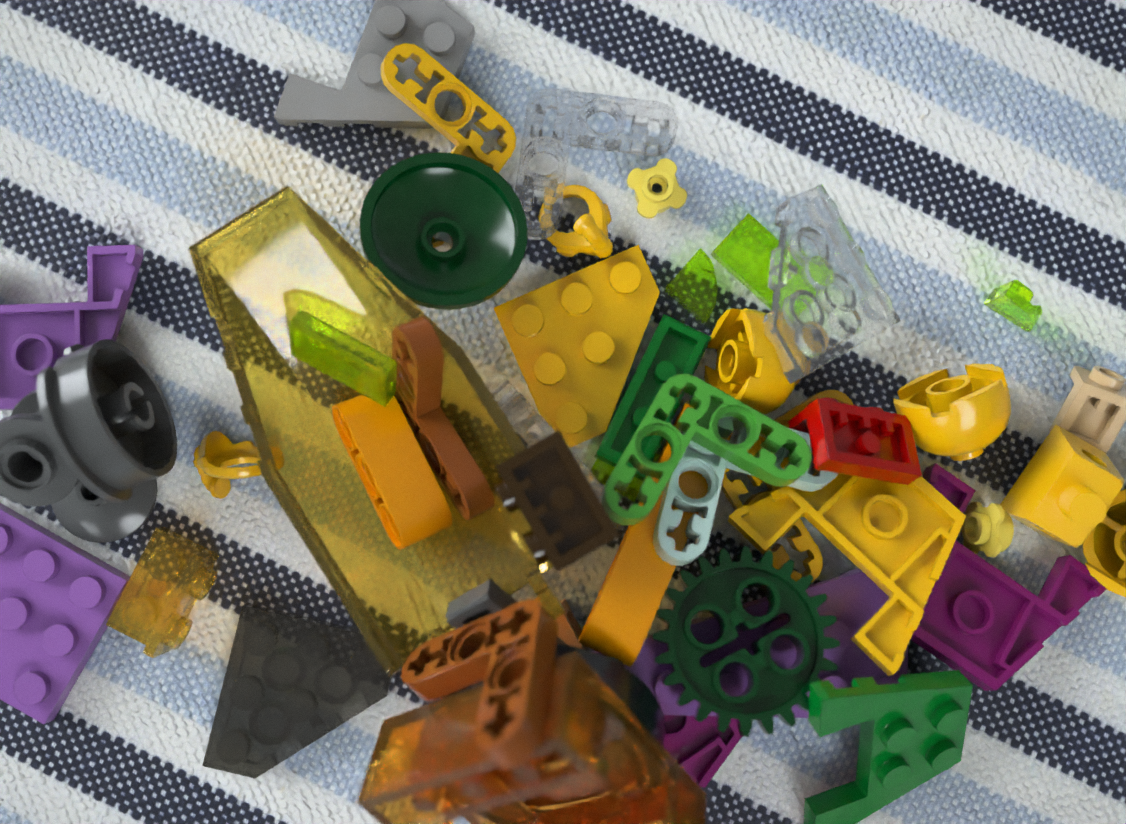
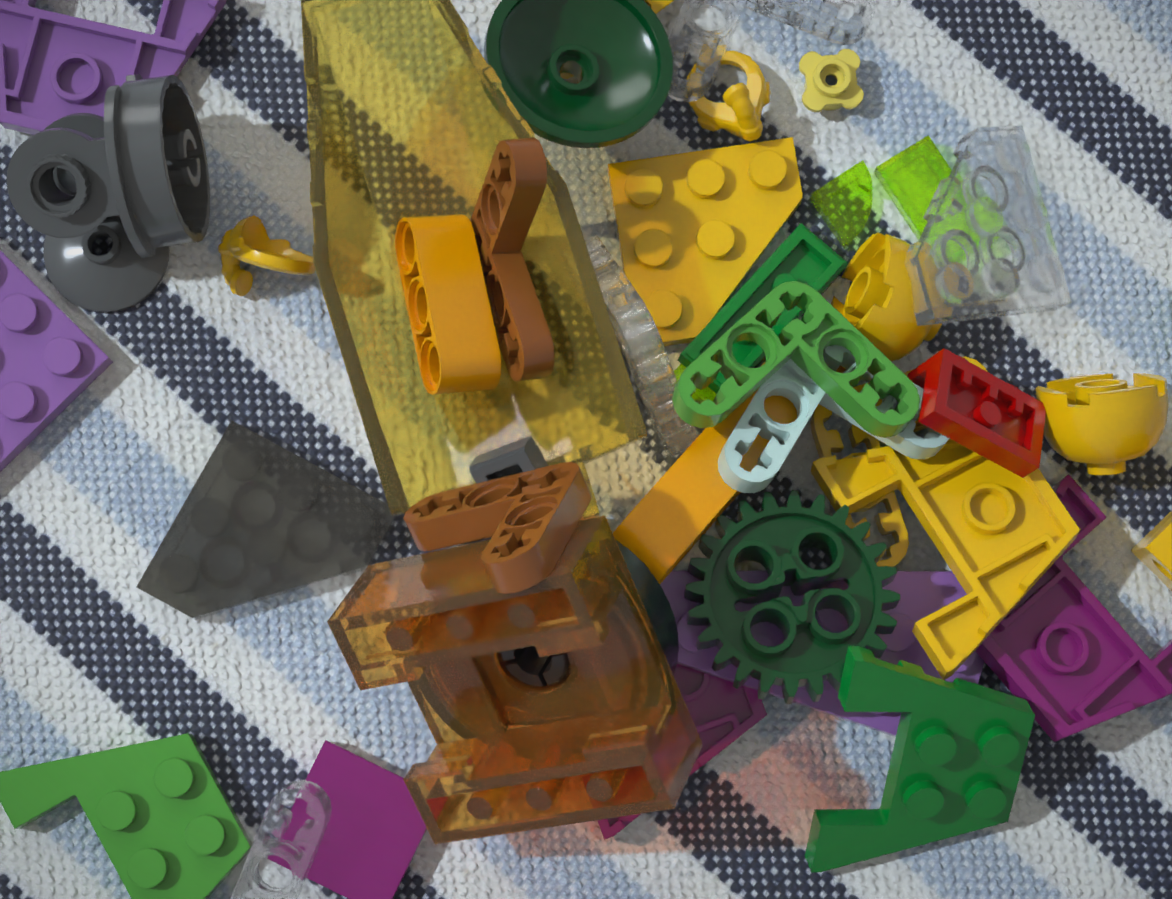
camera: 15 degrees right, 5 degrees down
(163, 592) = (146, 381): clear yellow bracket -> none
(343, 357) = (429, 167): clear neon green tile -> none
(555, 501) = (622, 370): dark brown bracket -> none
(987, 529) = (1107, 563): light yellow plate -> none

